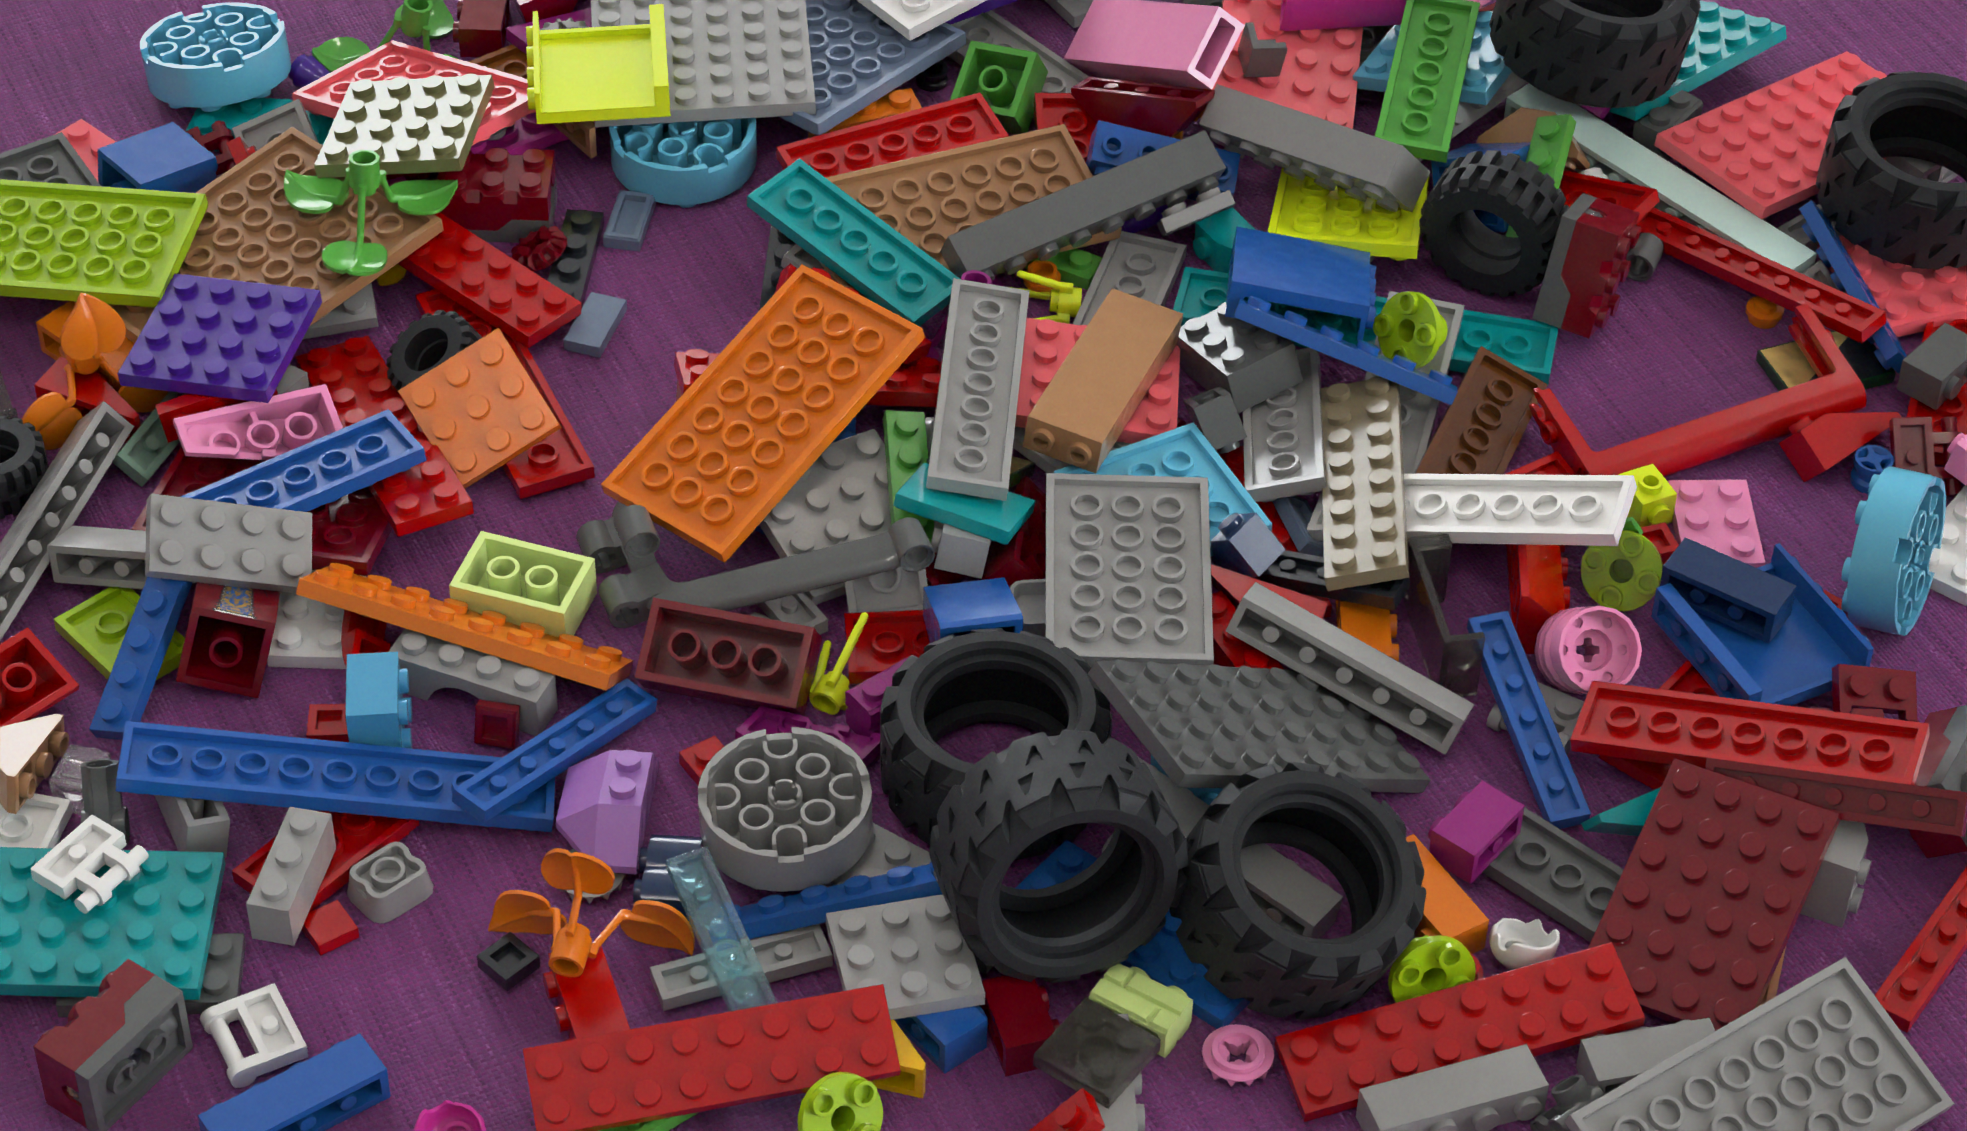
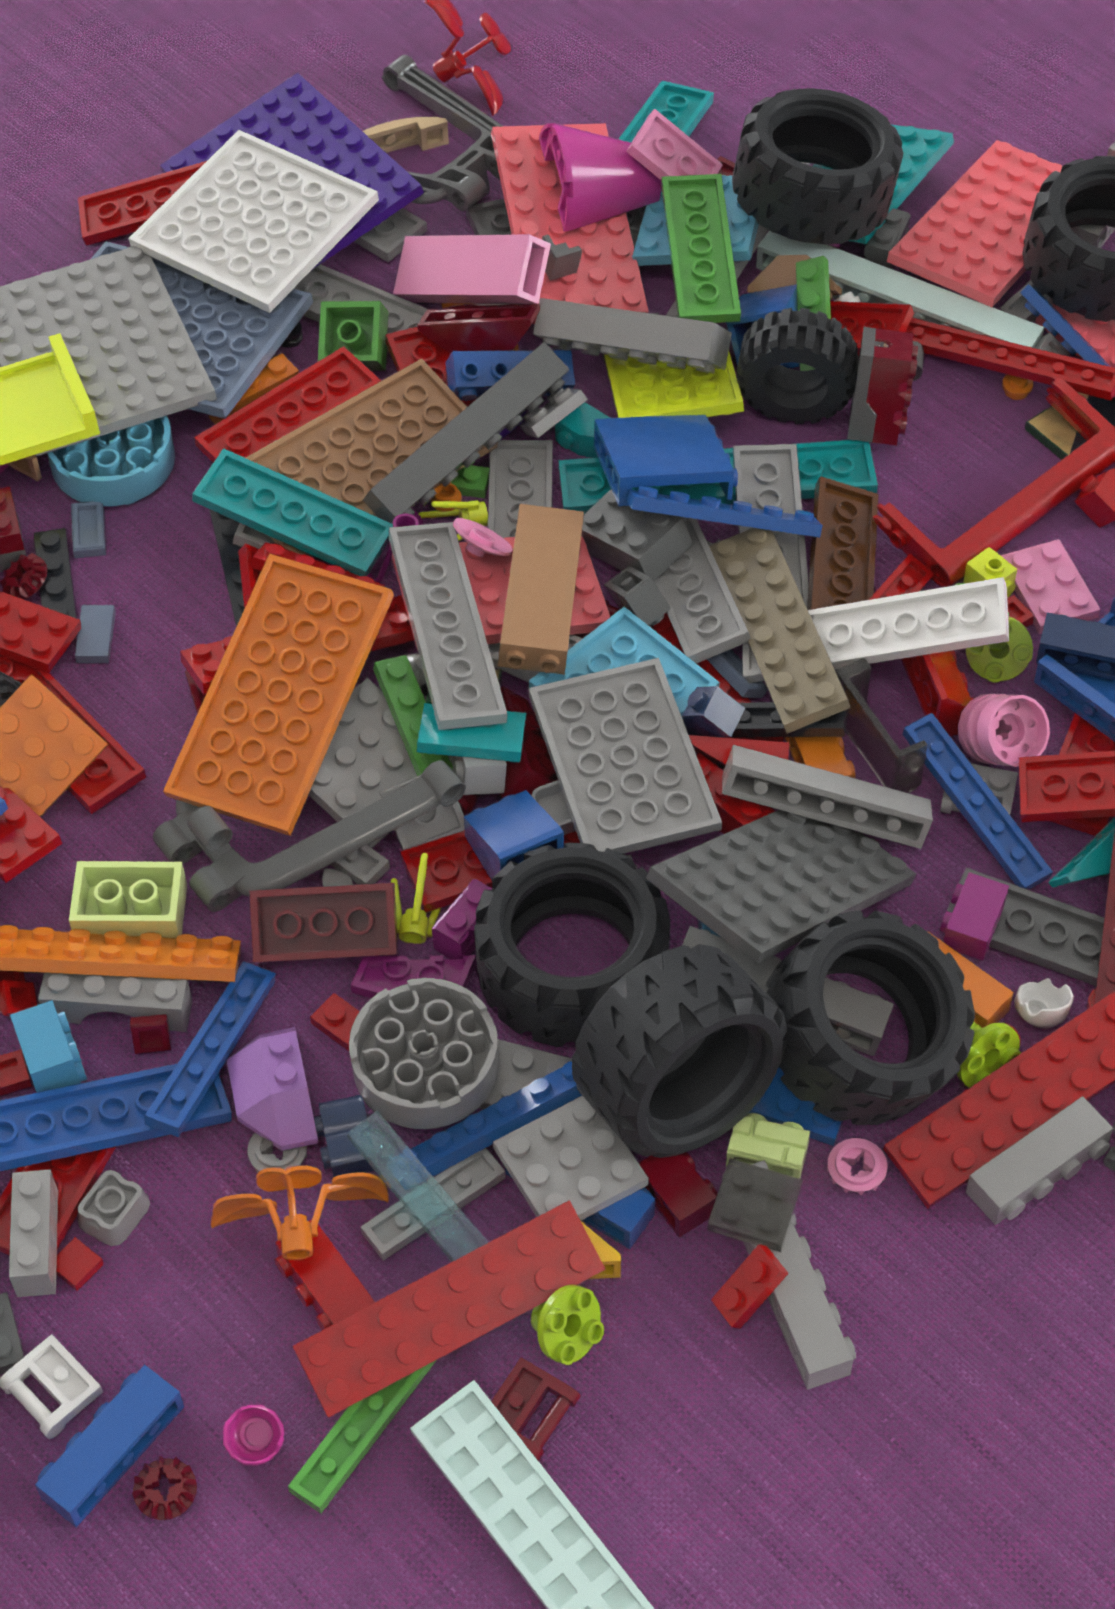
camera: 15 degrees left, 10 degrees up
(508, 961) = (240, 1253): black plate -> none
(1053, 314) = (481, 539): none -> bright pink dish
(1410, 328) = (767, 479): lime plate -> none

